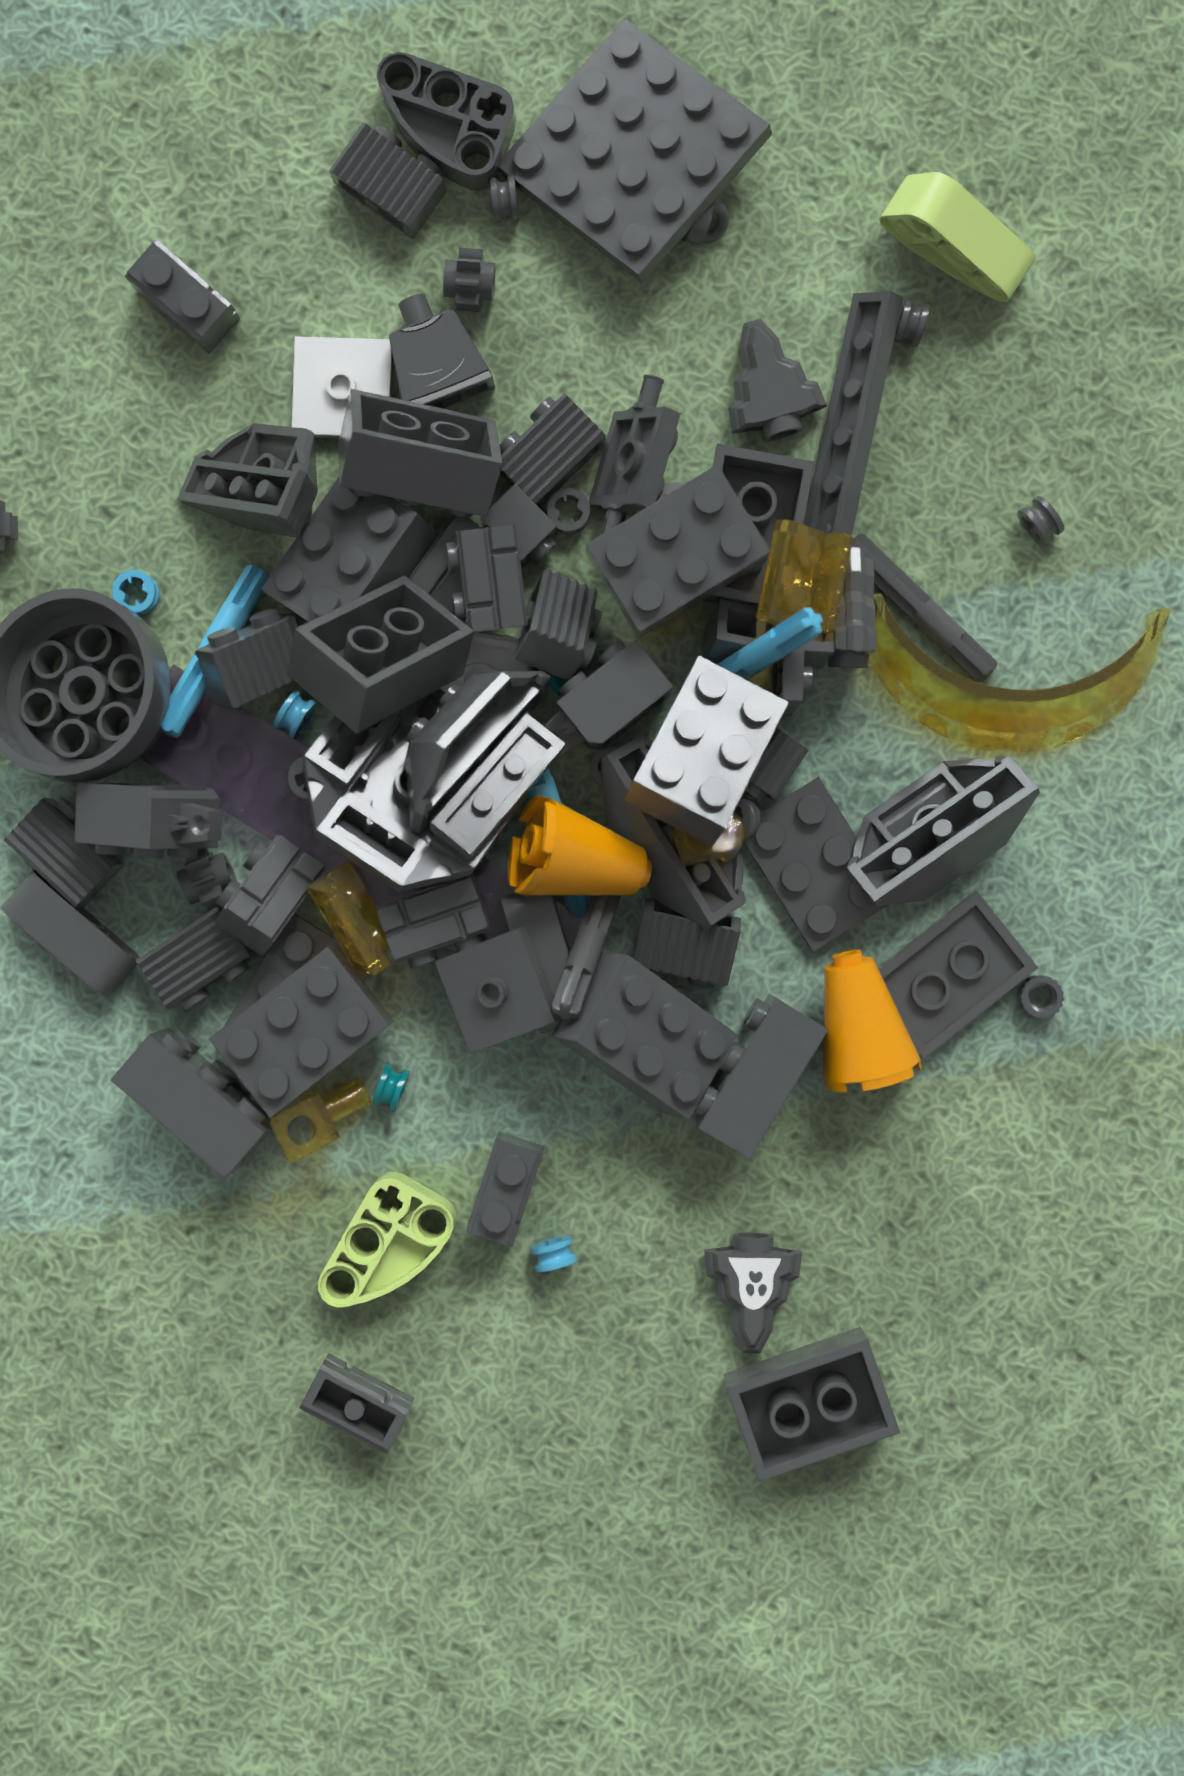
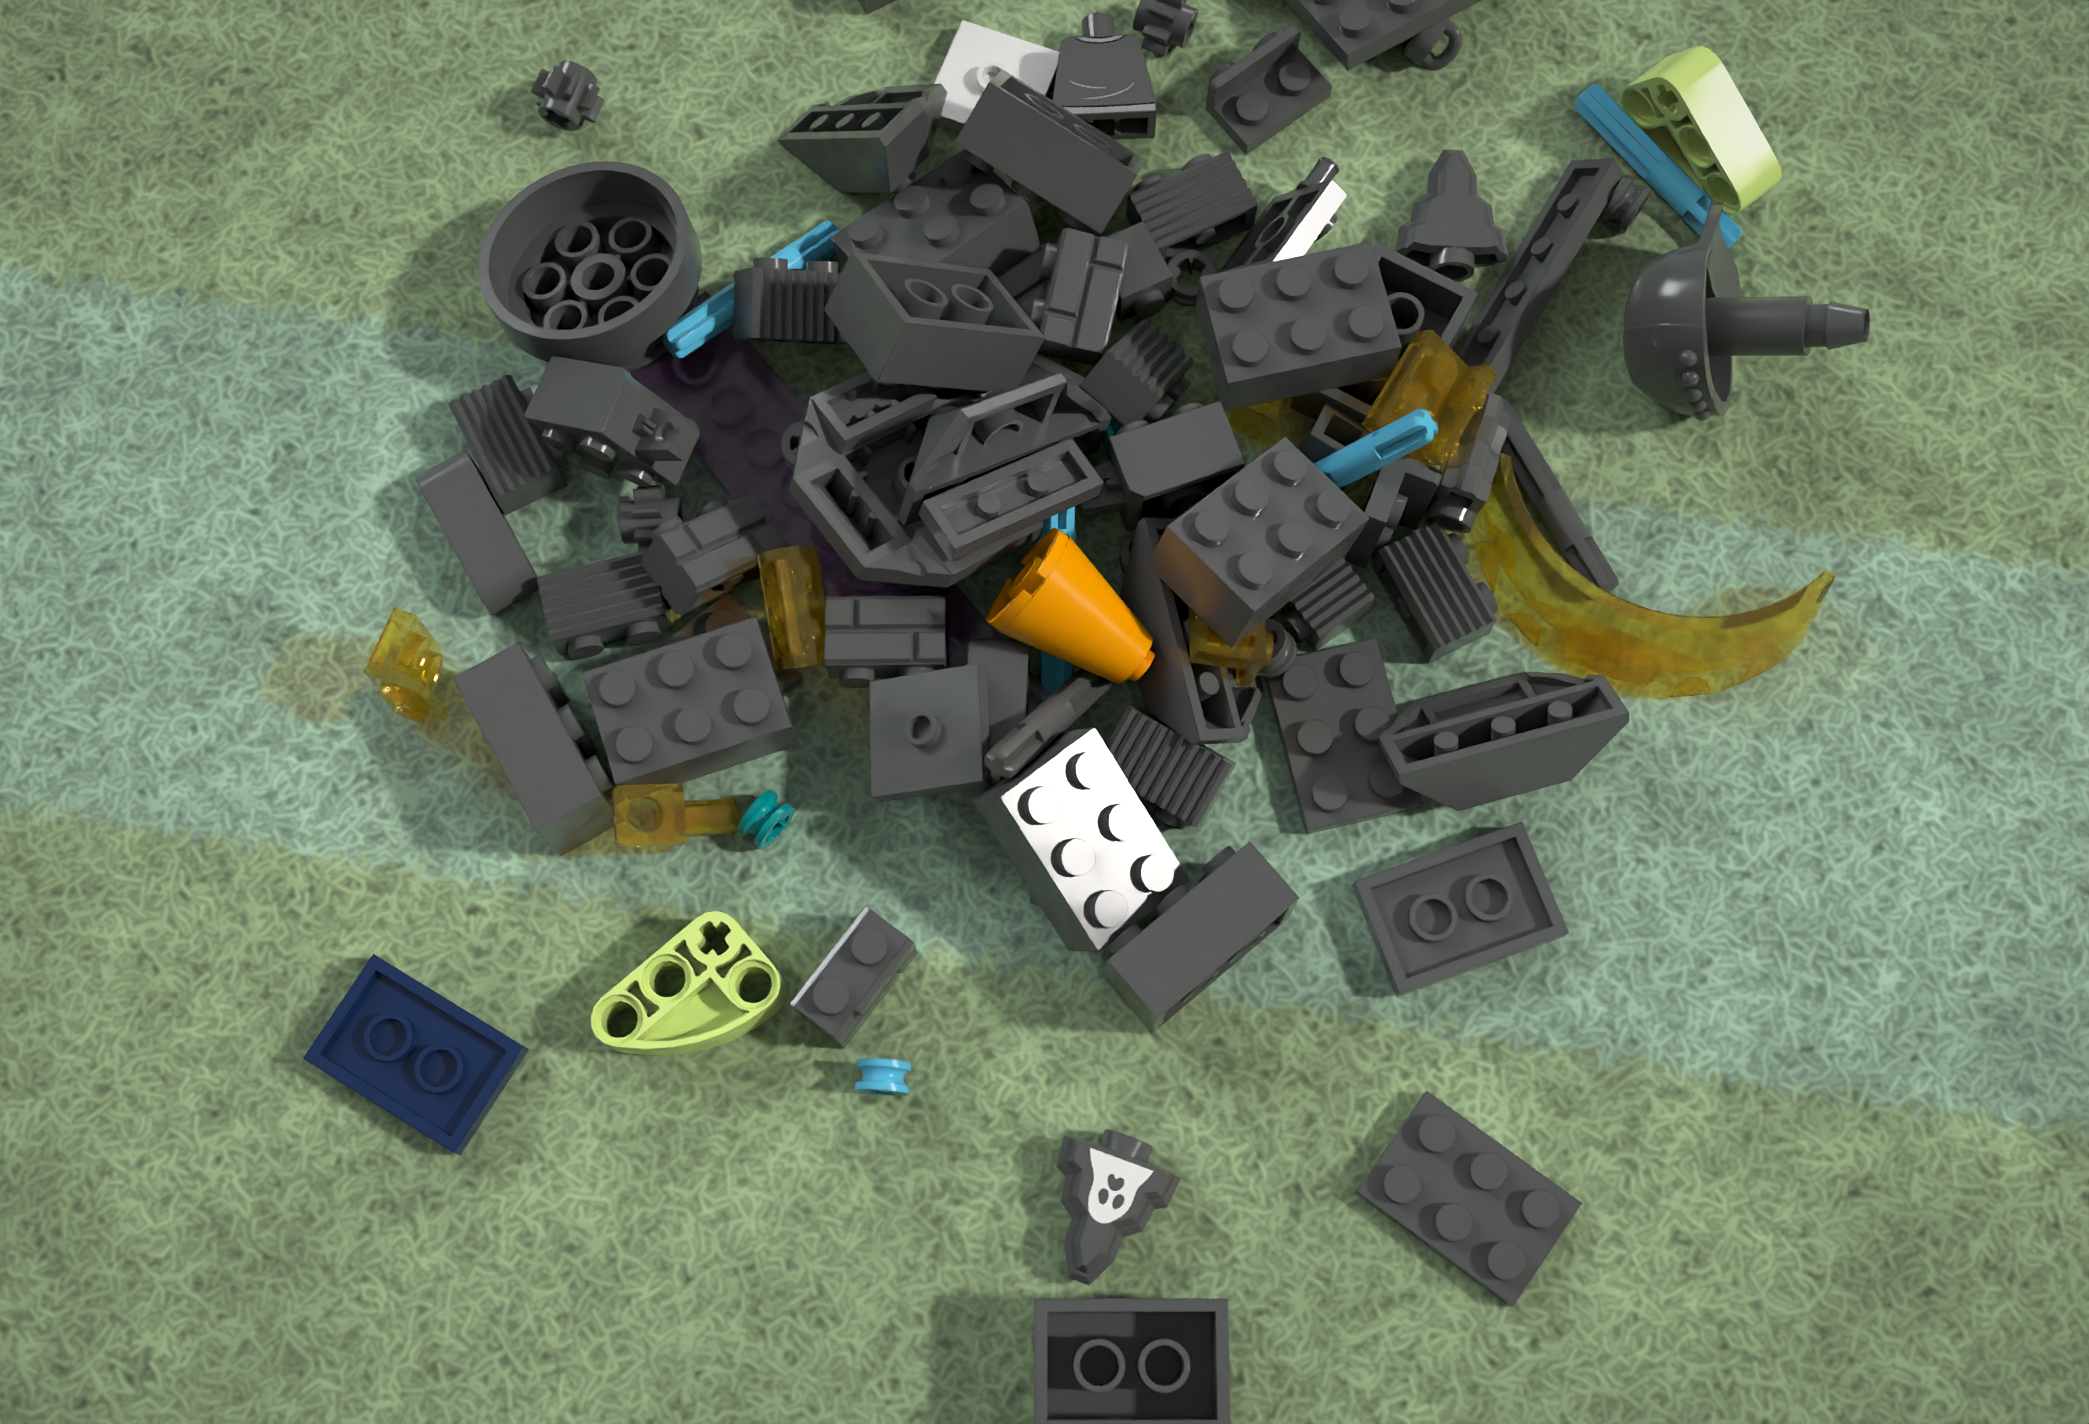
camera: 20 degrees right, 15 degrees down
(59, 1065) = (406, 666): none -> clear yellow bracket
(148, 586) = (700, 196): medium azure bush -> none
(194, 1356) = (416, 1054): none -> dark blue plate
(295, 714) = (813, 379): medium azure bush -> none
(357, 1403) = (582, 1170): dark grey brick -> none
(576, 316) = (1265, 90): none -> dark grey bracket
(855, 722) = (1435, 591): none -> dark grey brick
(865, 1030) = (1340, 921): light orange cone -> none
(928, 276) = (1651, 161): none -> medium azure axle
(997, 432) = (1690, 321): none -> dark grey piece
(1019, 1191) = (1468, 1198): none -> dark grey plate
(1040, 520) = (1711, 447): dark grey bush -> none
(1051, 1007) = (1561, 953): dark grey axle -> none

